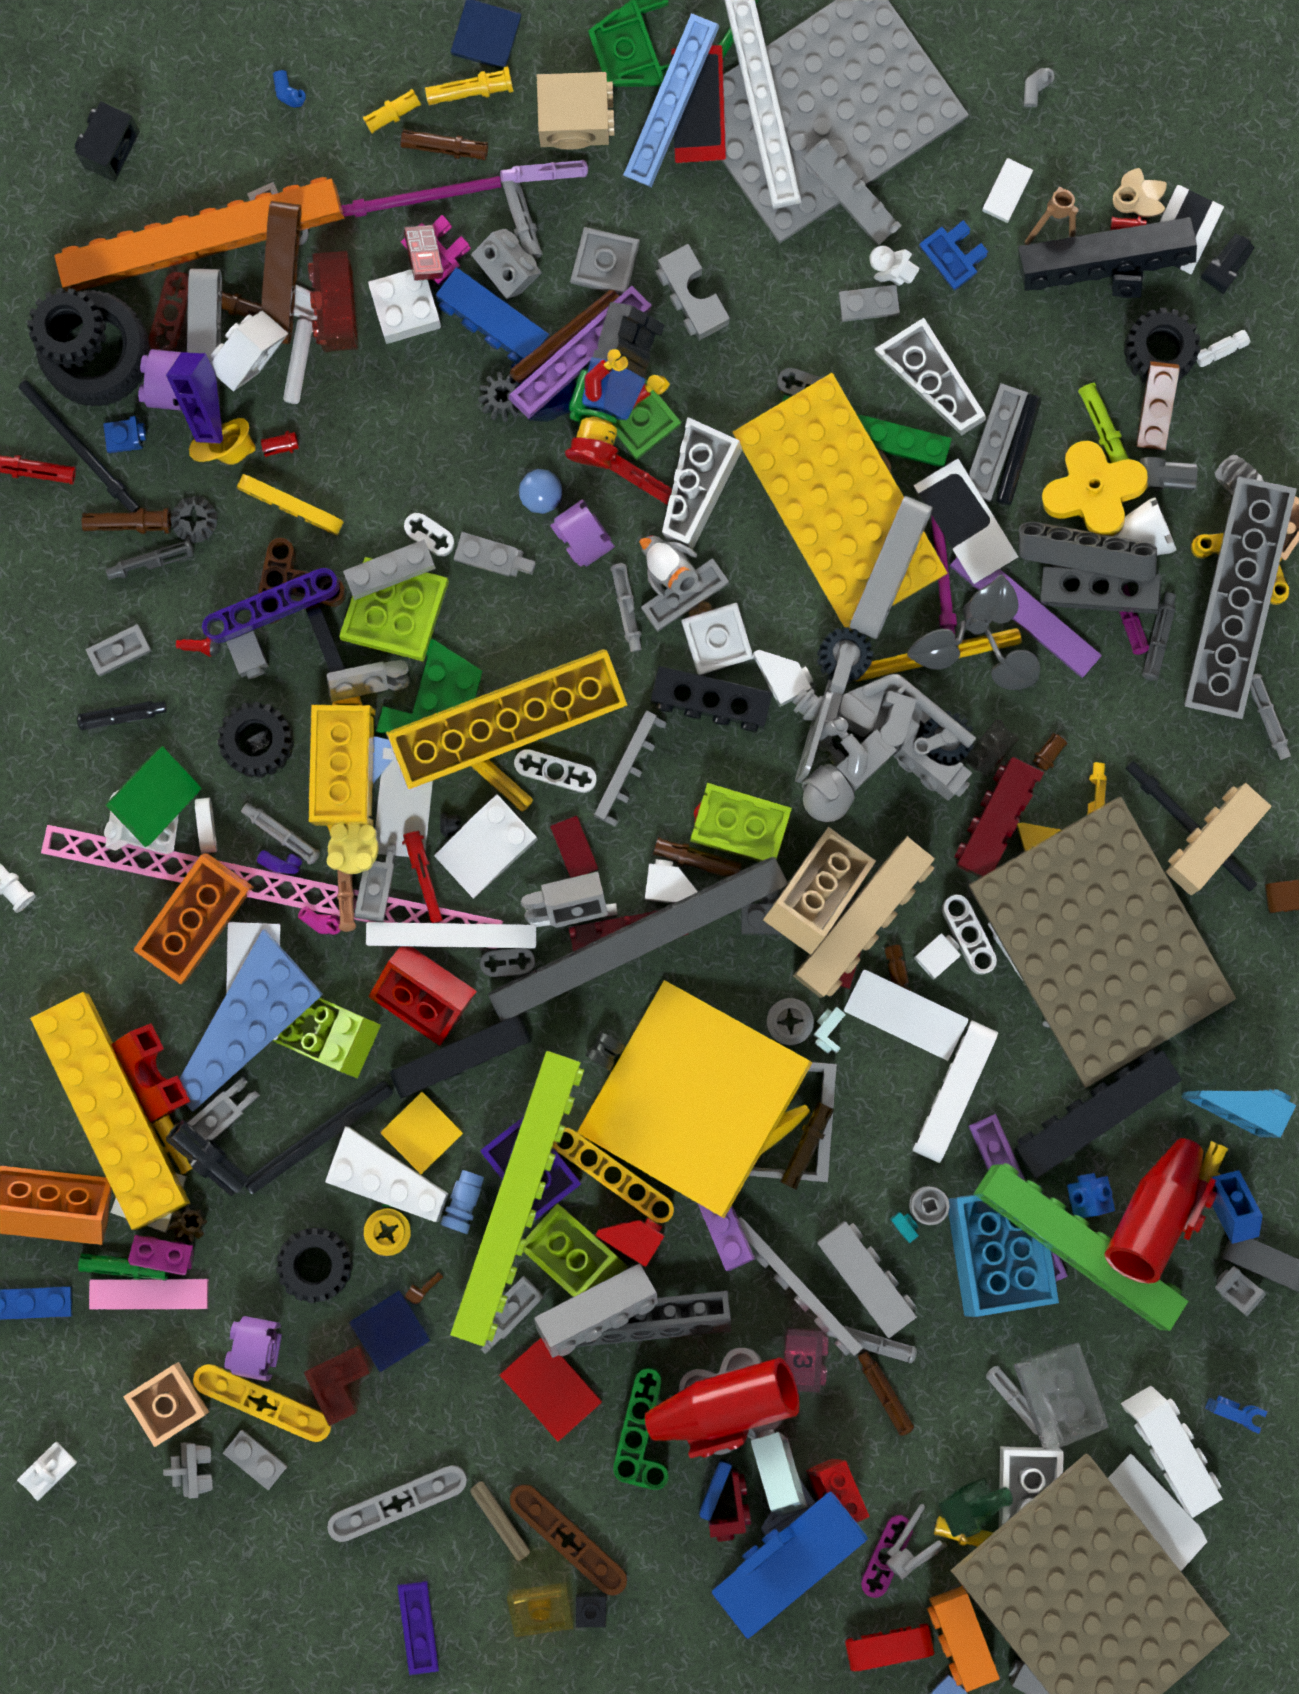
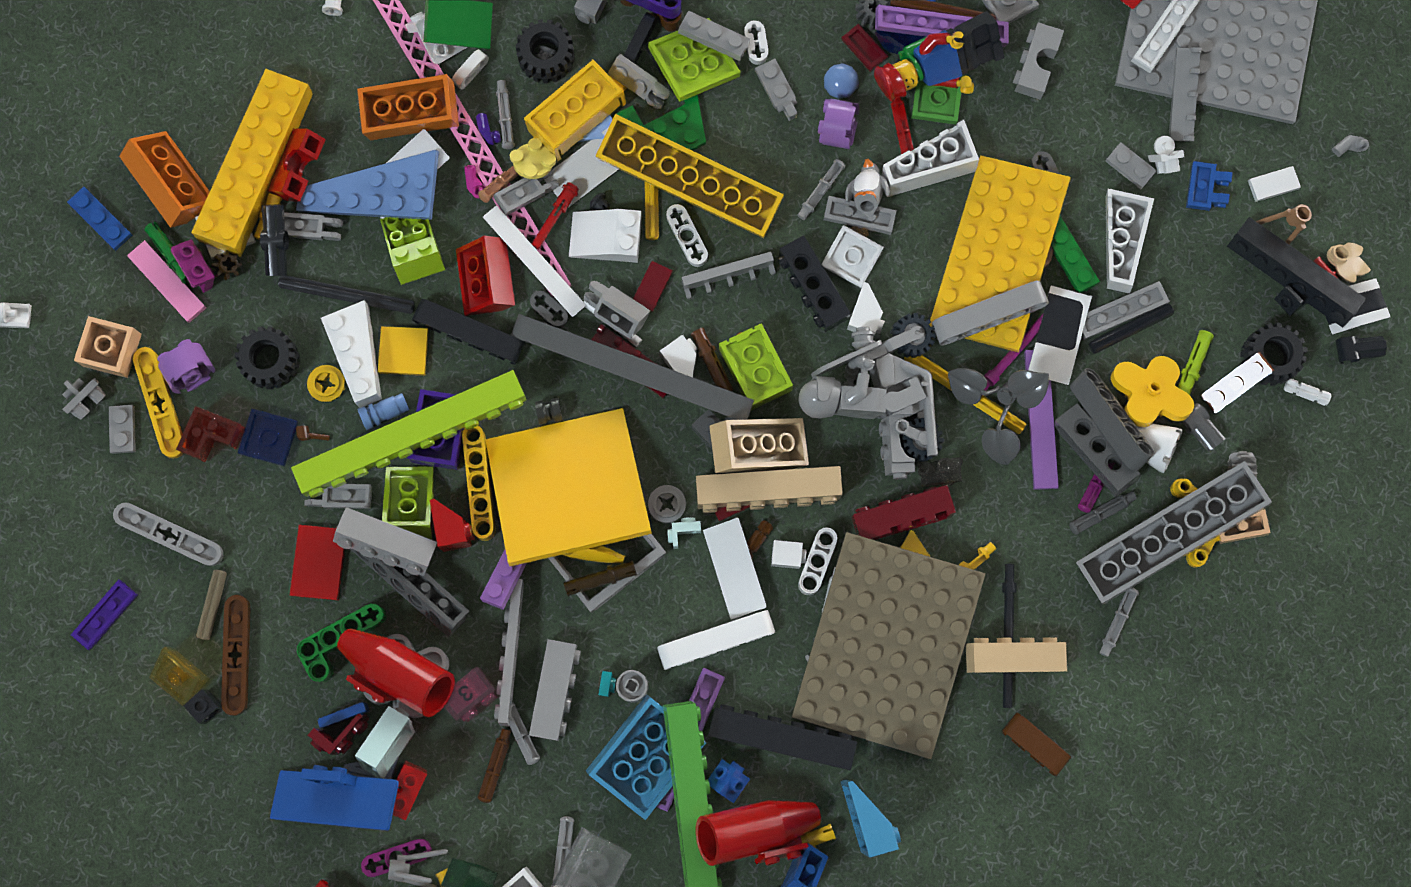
camera: 45 degrees right, 5 degrees down
(528, 438) = (864, 47): none -> dark red tile
(1049, 752) = (971, 510): reddish brown pin -> none

